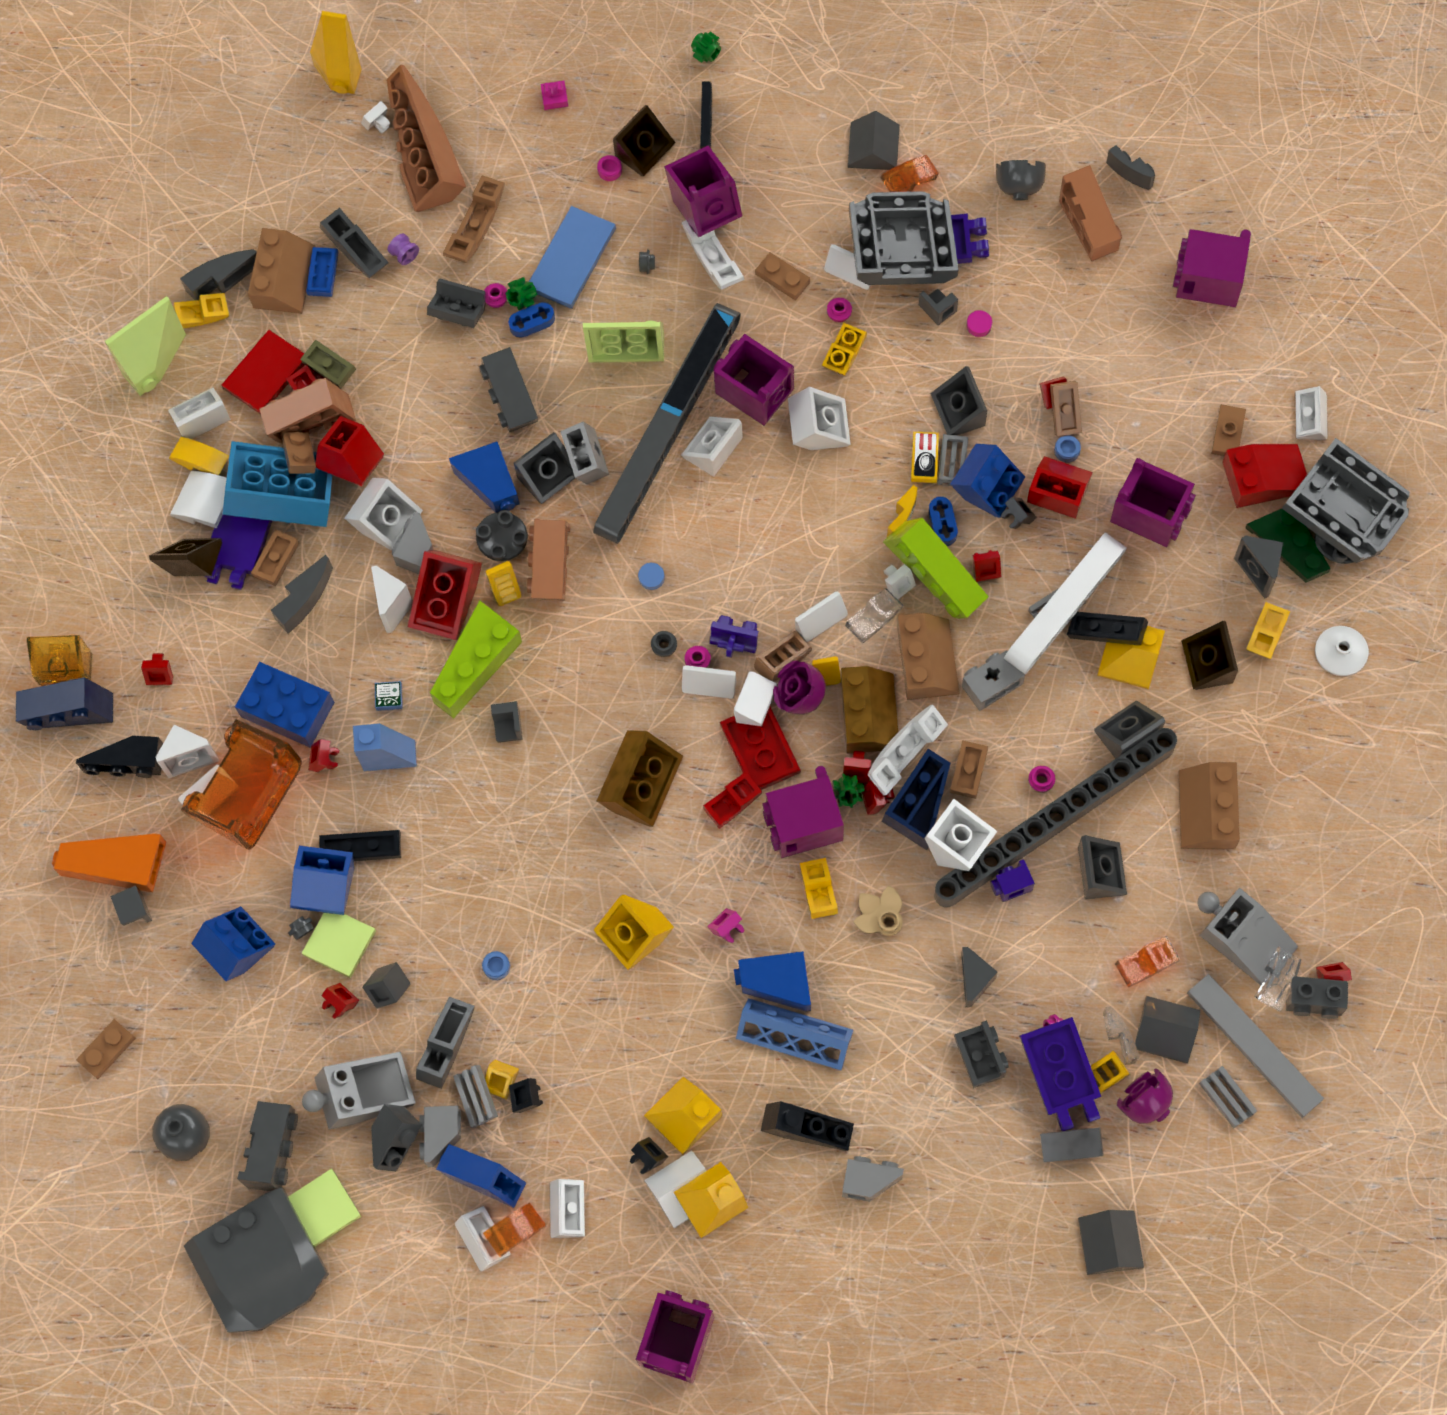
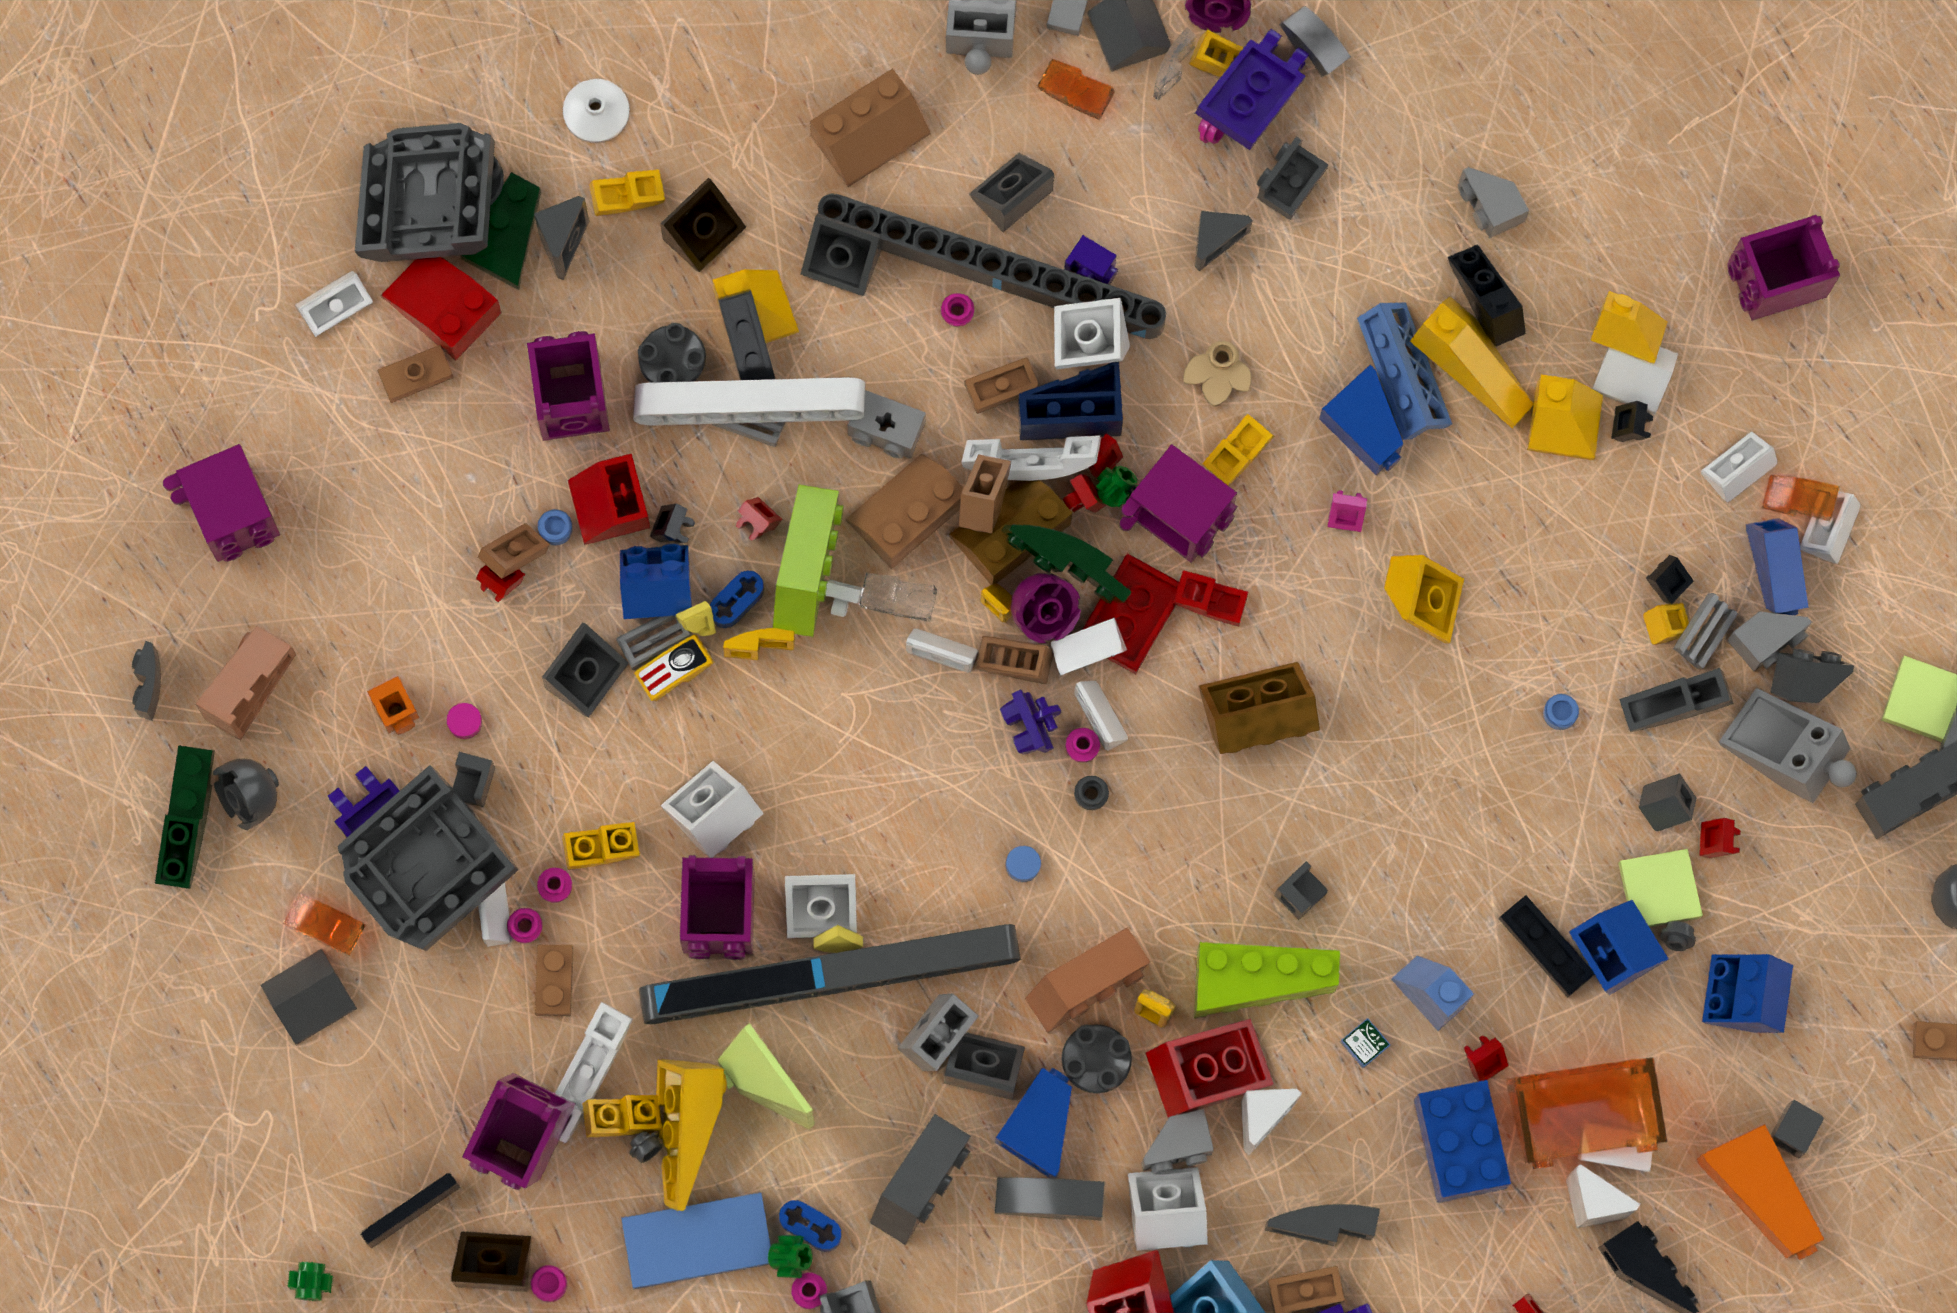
camera: 135 degrees left, 5 degrees up
(434, 457) = (1050, 1198): none -> dark grey slope
(643, 291) = (691, 1106): none -> yellow wedge
(673, 260) = (622, 1116): none -> yellow slope
(684, 441) = (838, 940): none -> light yellow tile
(783, 1078) = (1467, 354): none -> yellow wedge
(827, 273) = (517, 917): none -> dark pink plate
(827, 712) = (1056, 550): none -> dark green slope
(899, 696) = (984, 494): none -> medium nougat slope
(945, 484) = (698, 619): none -> light yellow tile
(1015, 287) = (385, 698): none -> orange brick
(1027, 140) = (186, 817): none -> dark green slope
(1132, 584) = (672, 355): none -> dark grey dish

